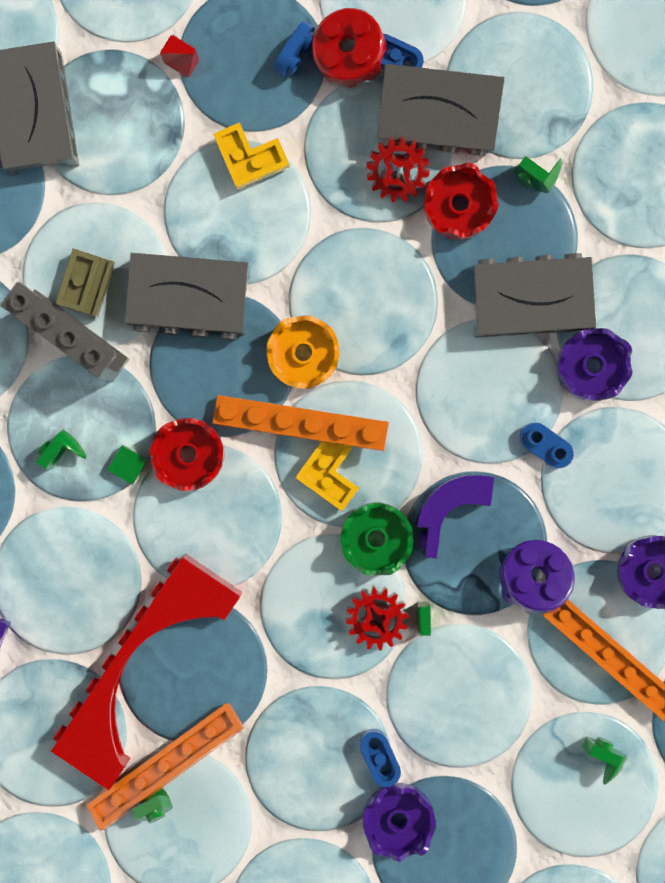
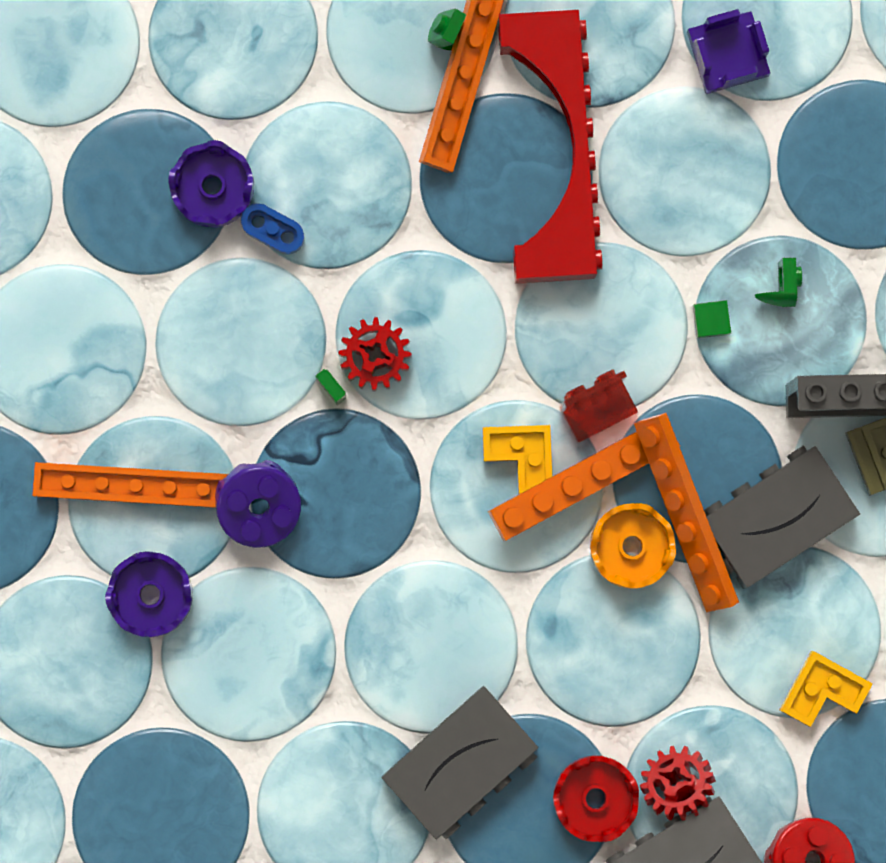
camera: 135 degrees right, 5 degrees down
(167, 459) = (679, 351): red plate -> none
(249, 346) = (686, 512): none -> orange plate
(252, 464) = (597, 407): none -> clear red bracket
(301, 40) = (857, 807): blue plate -> none
(376, 559) = (431, 402): green plate -> none
(444, 498) = (391, 527): dark purple arch -> none
(546, 446) = (339, 635): blue plate -> none
(604, 751) = (70, 392): green plate -> none
(614, 361) = (329, 748): dark purple plate -> none

